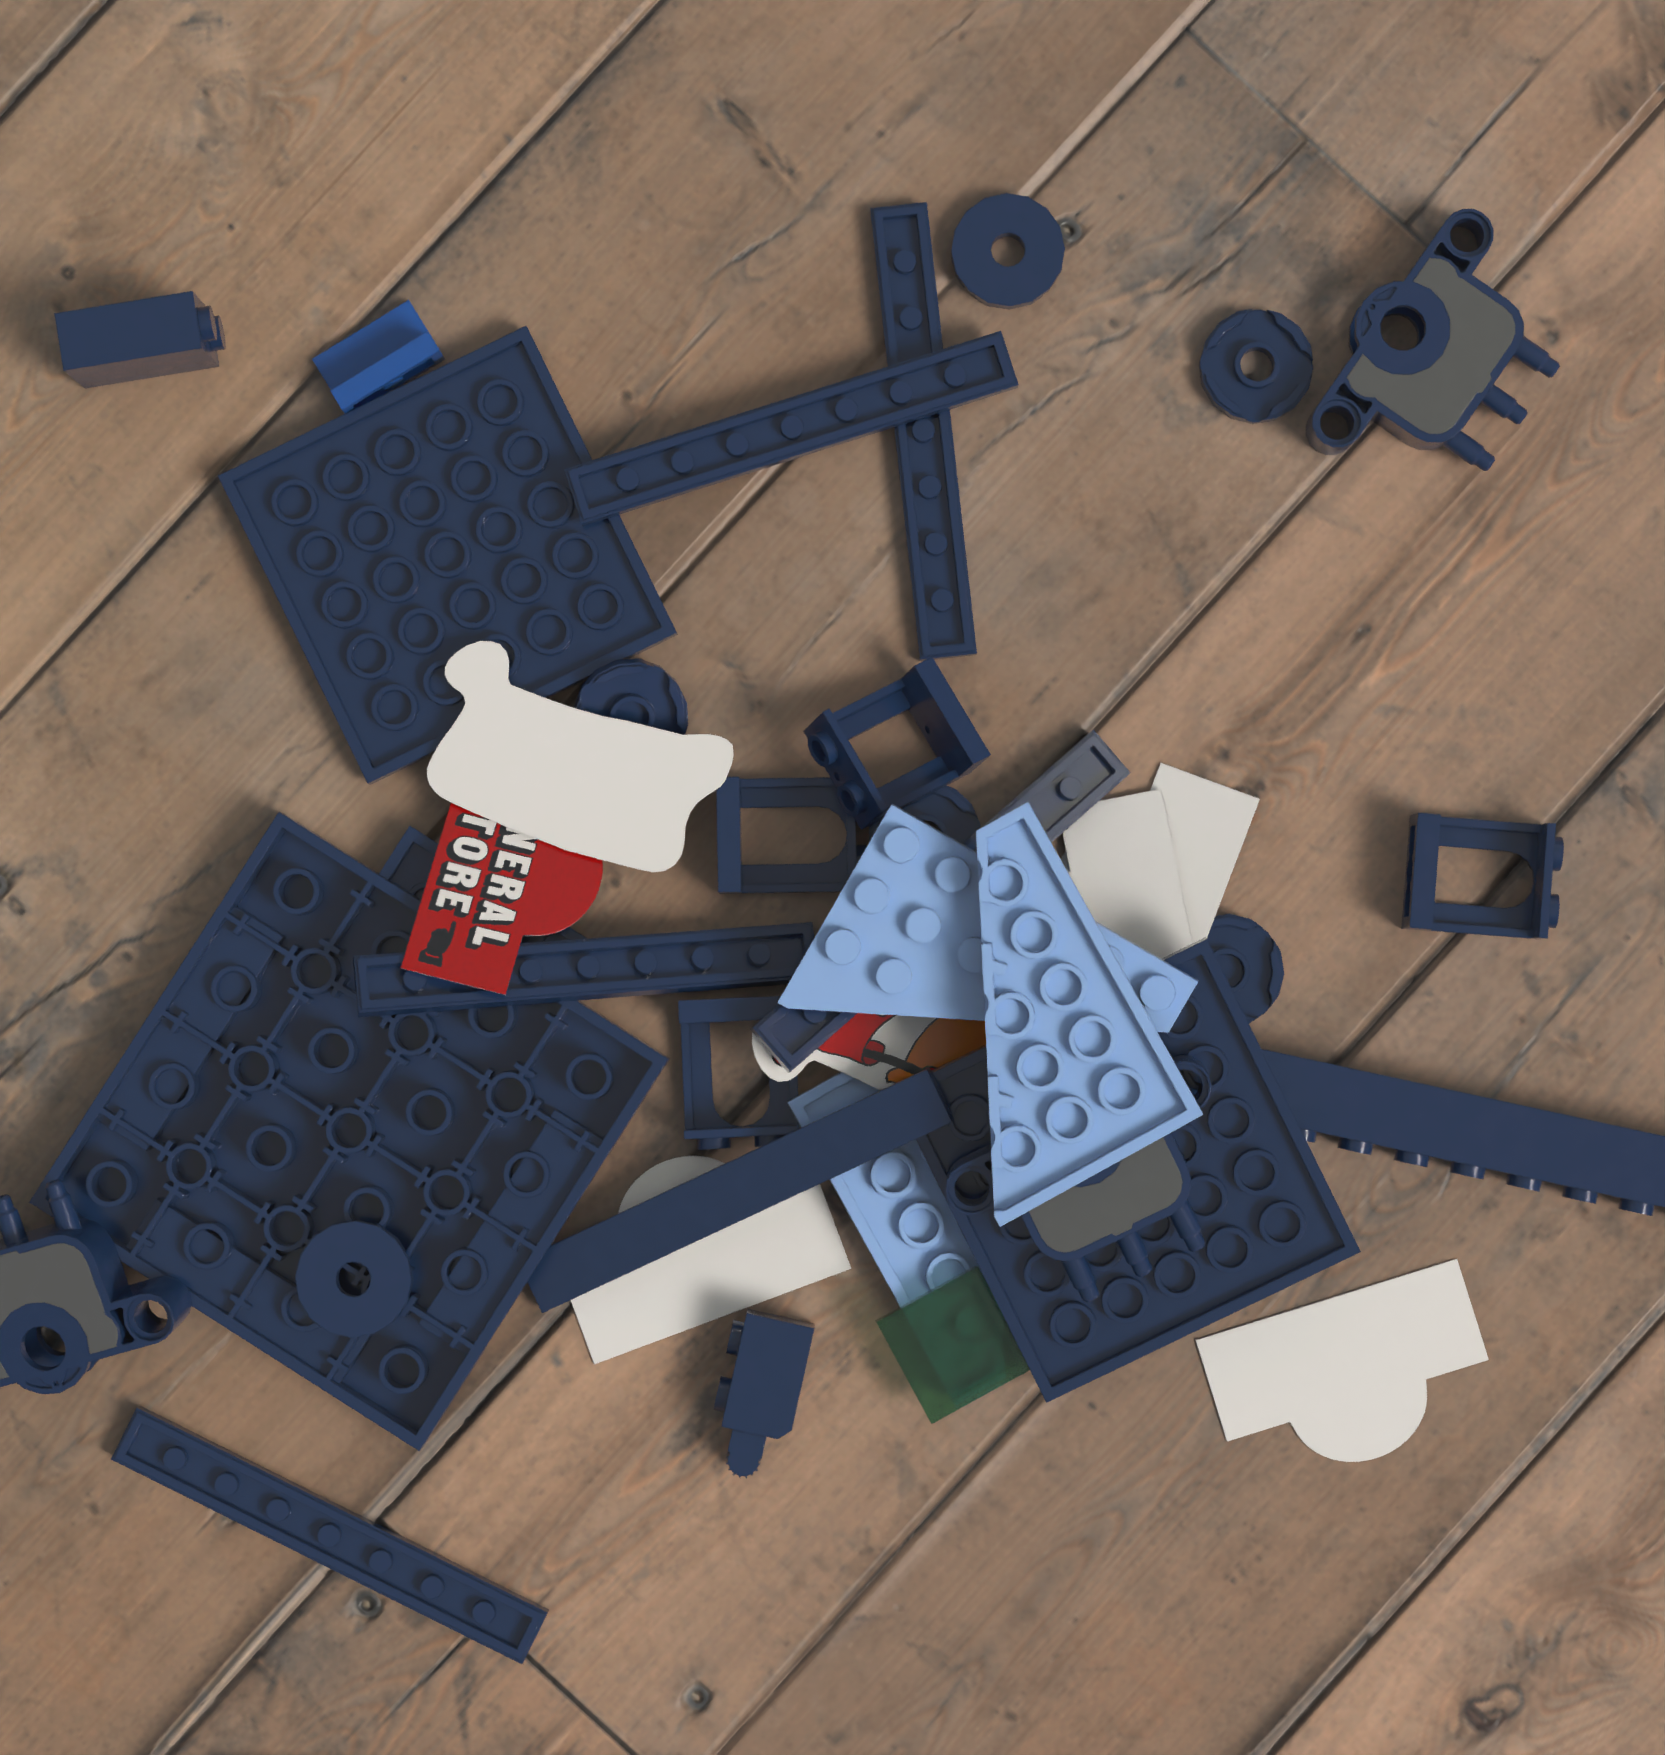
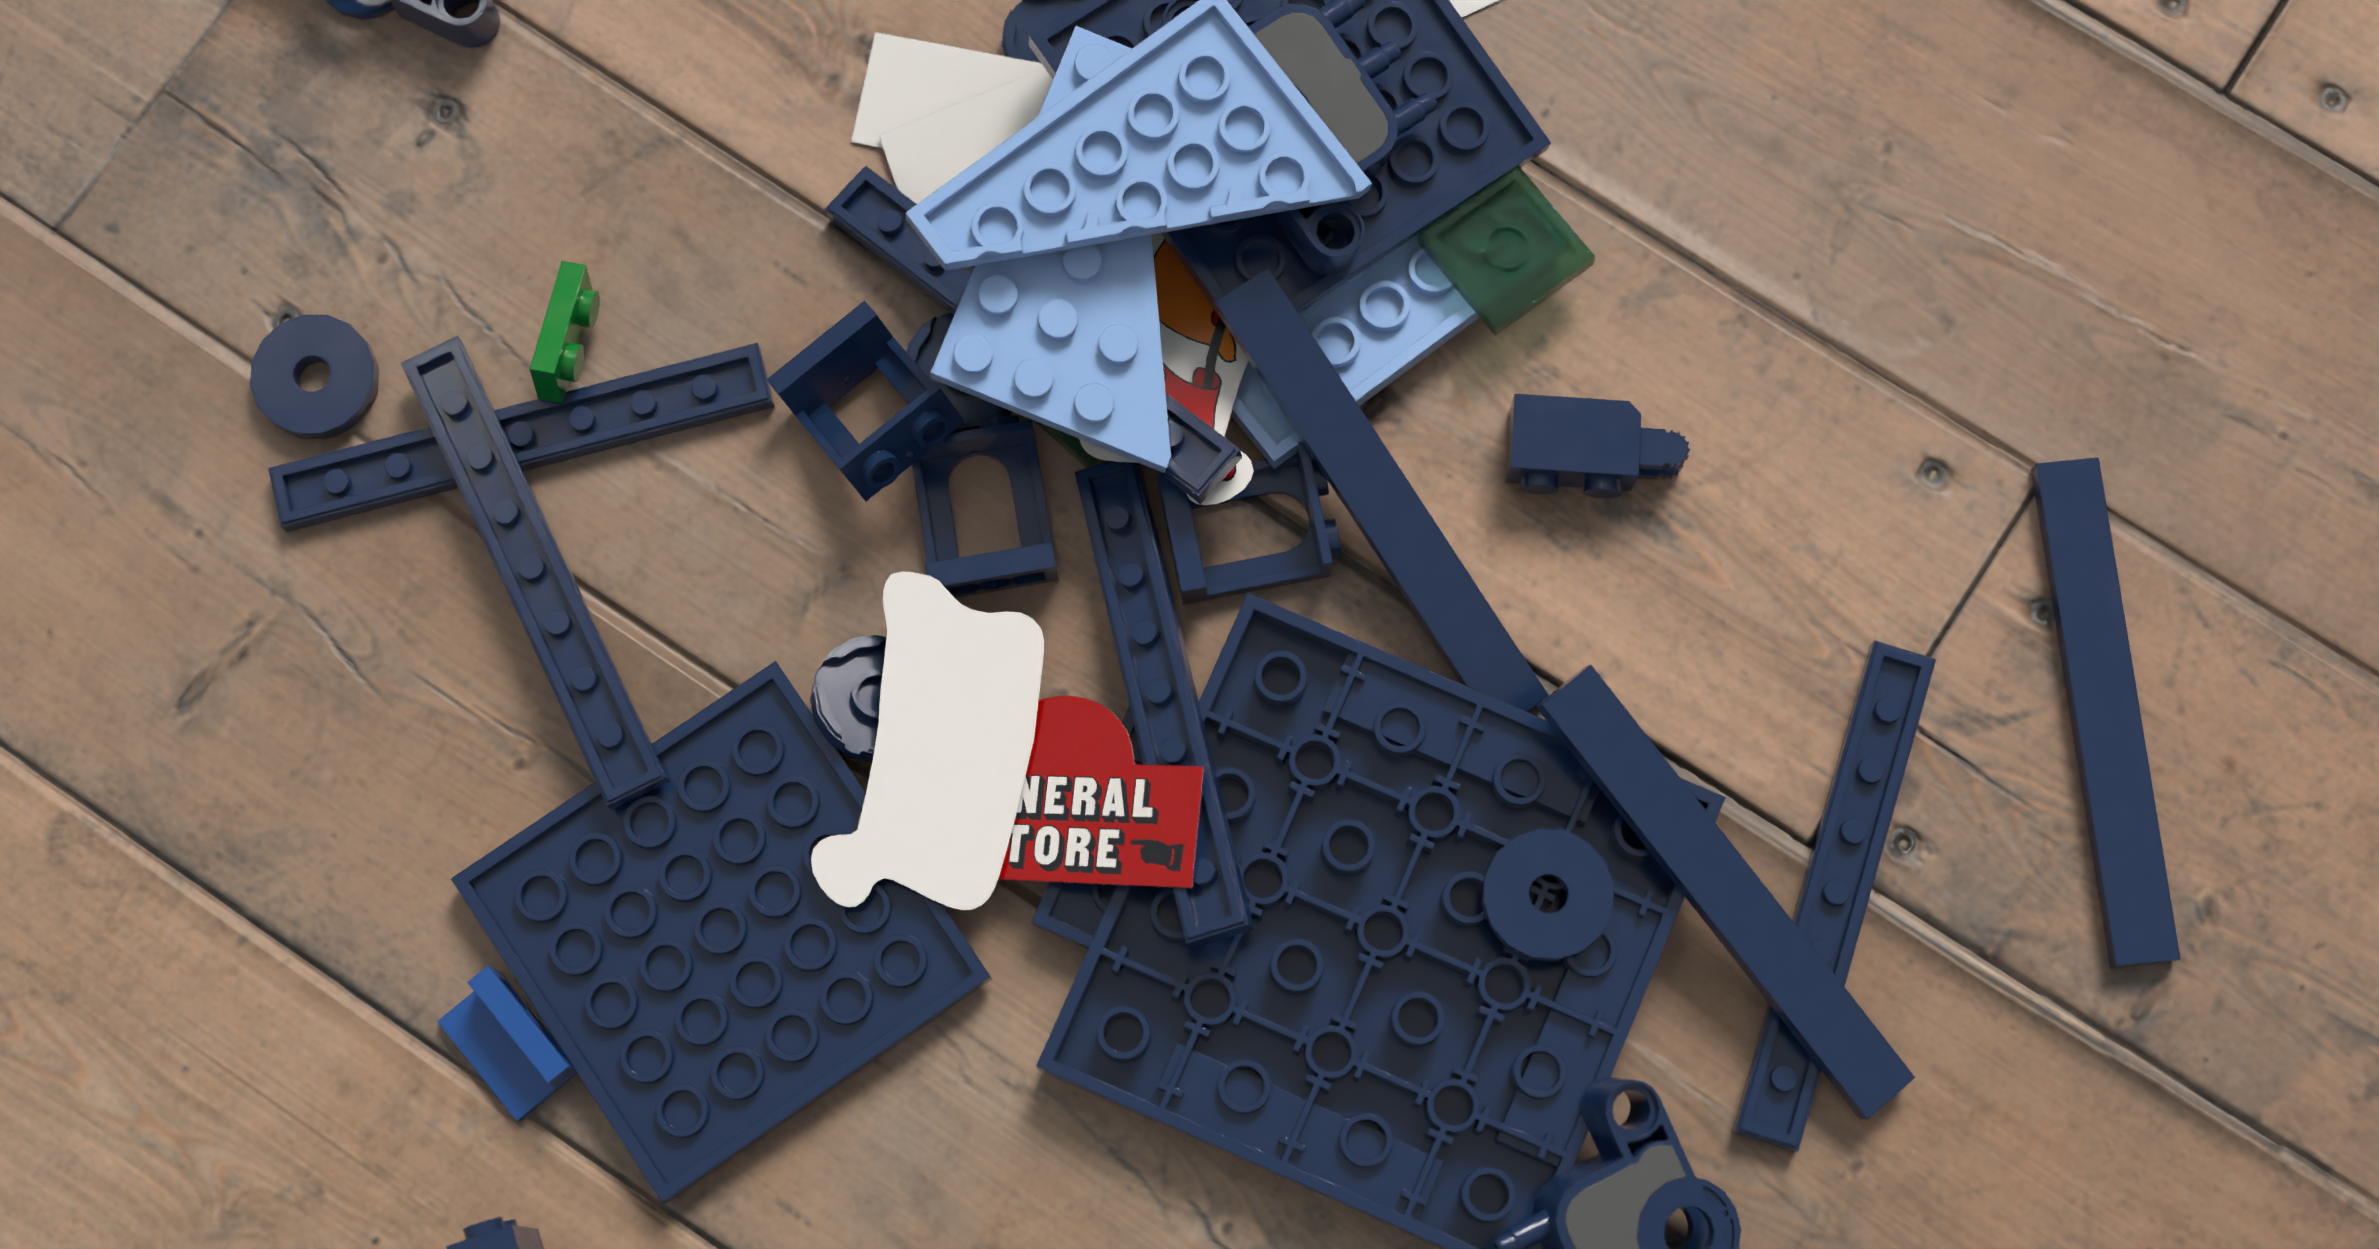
camera: 95 degrees left, 10 degrees down
(336, 1433) = (1725, 892): none -> dark blue tile
(713, 1276) = (1480, 523): white sticker -> none
(986, 473) = (558, 350): none -> green plate
(1232, 390) = (417, 137): dark blue tile -> none

